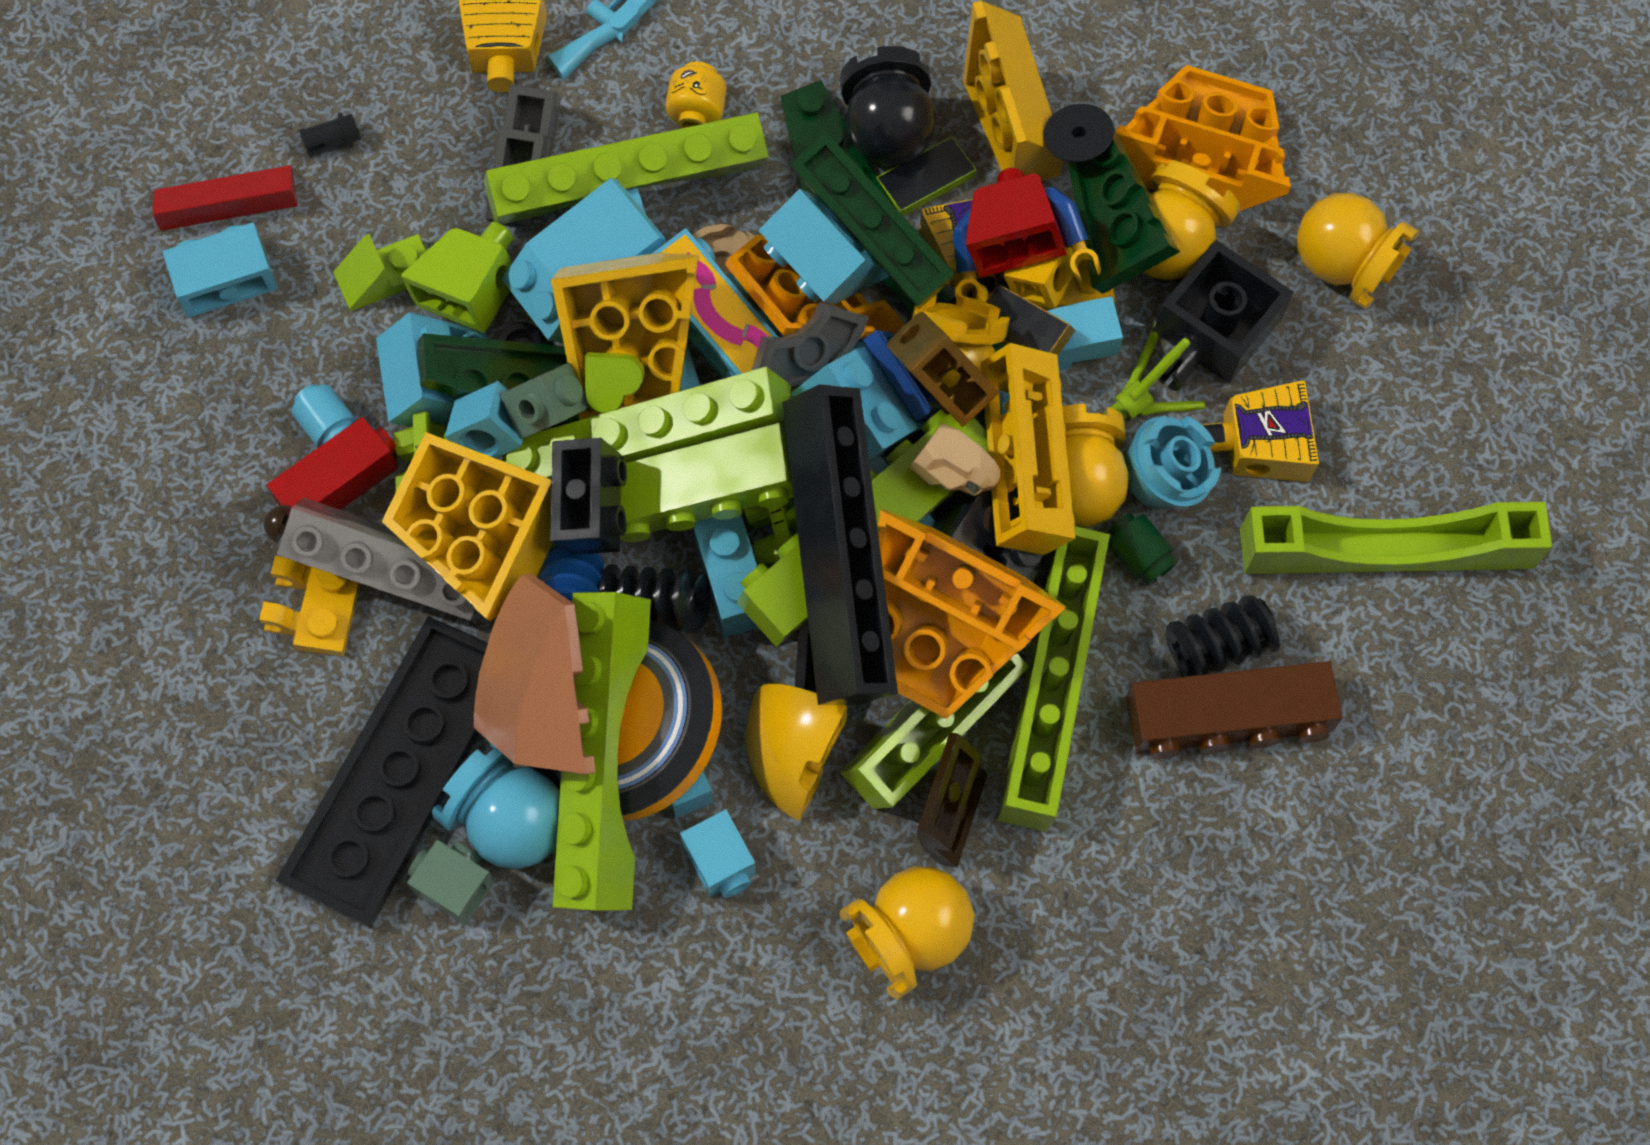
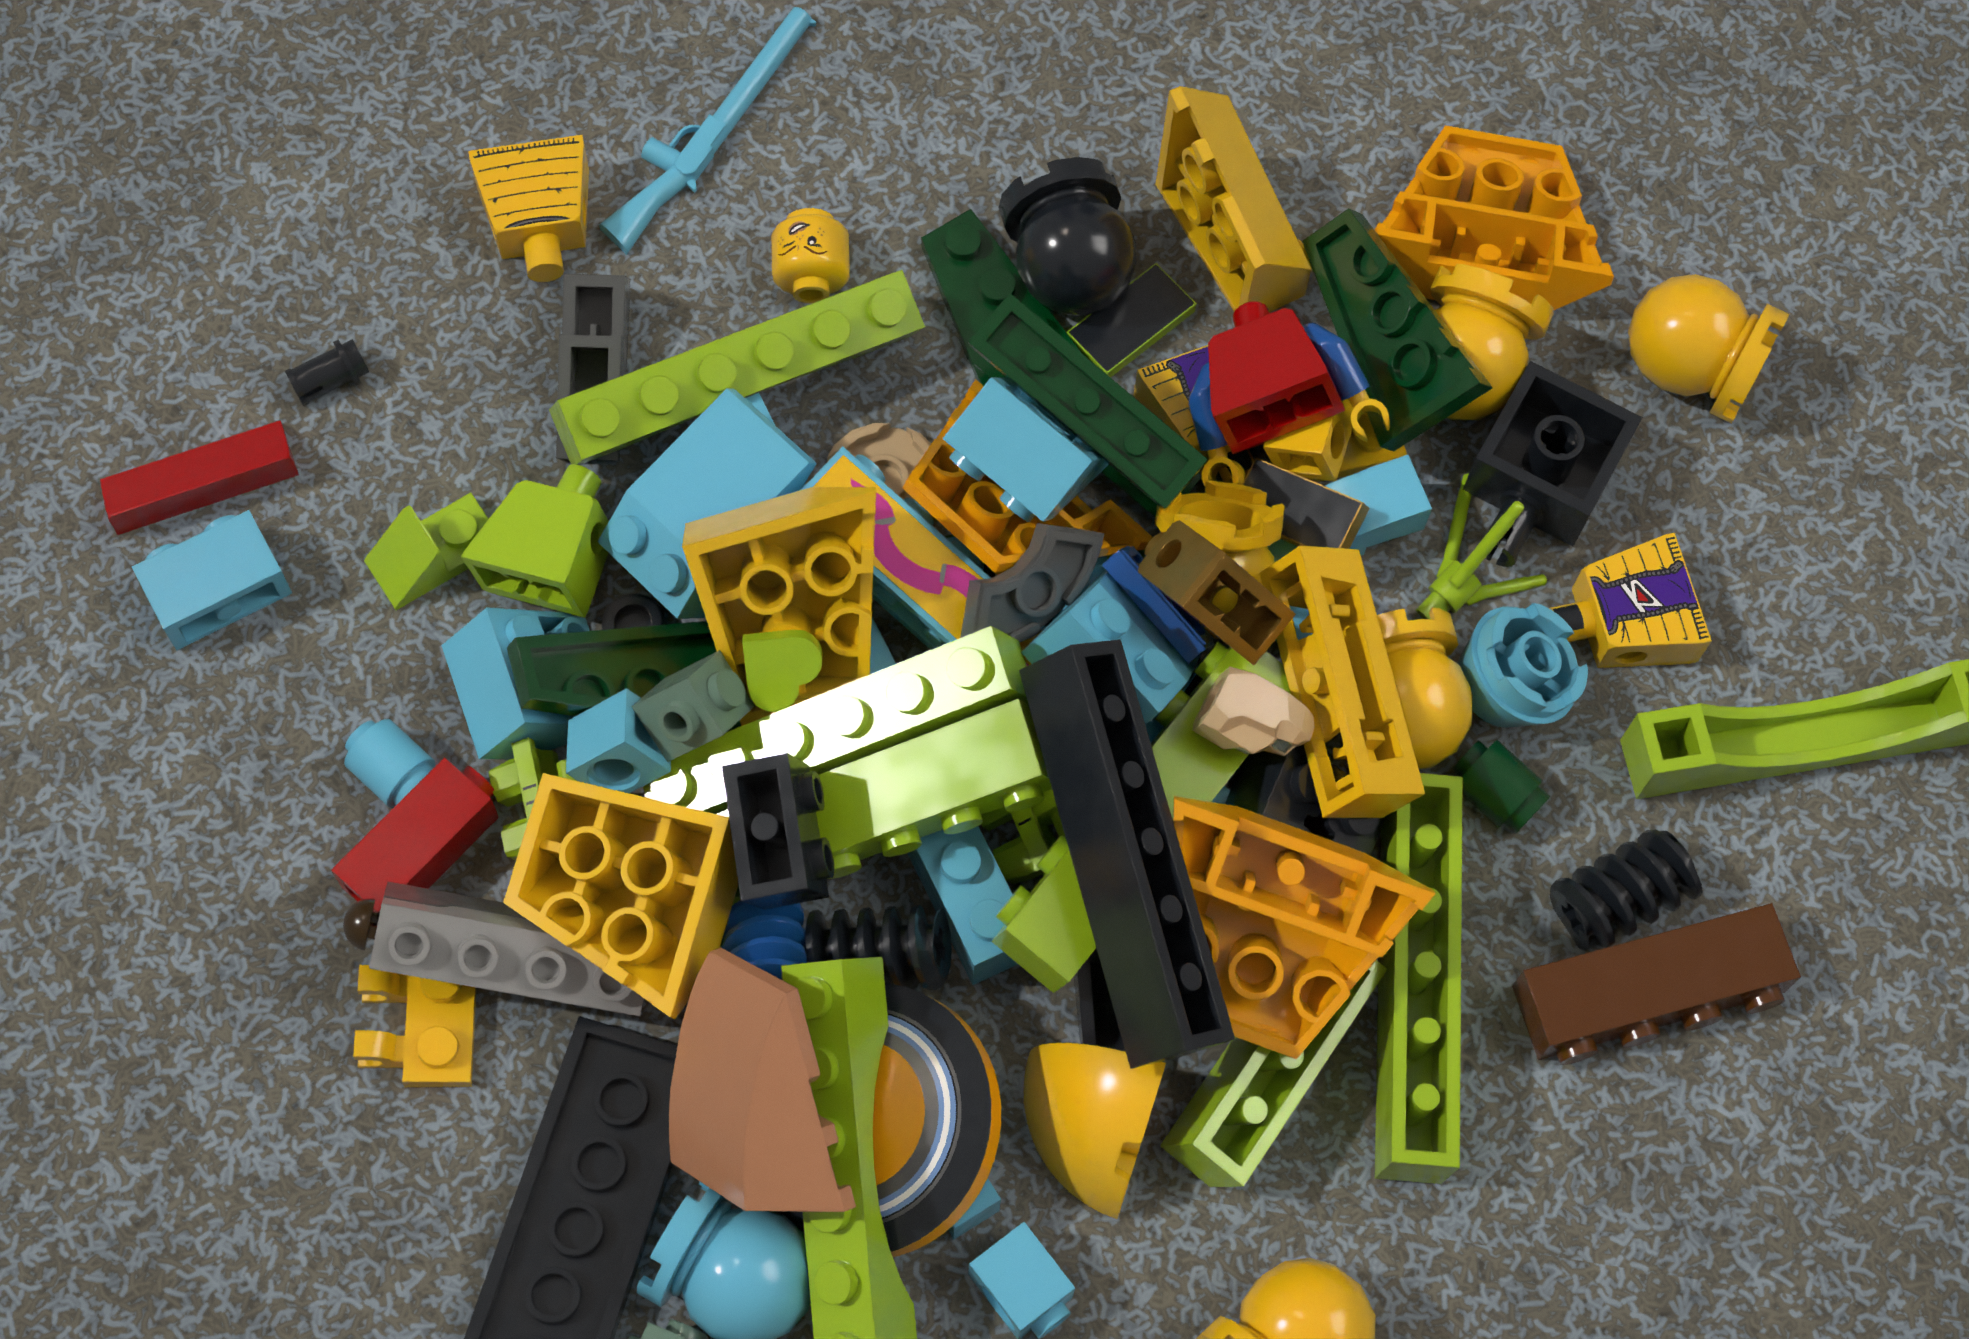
camera: 10 degrees left, 0 degrees up
(952, 802) = (1318, 1166): dark brown slope -> none
(1078, 133) = (1329, 242): black piece -> none

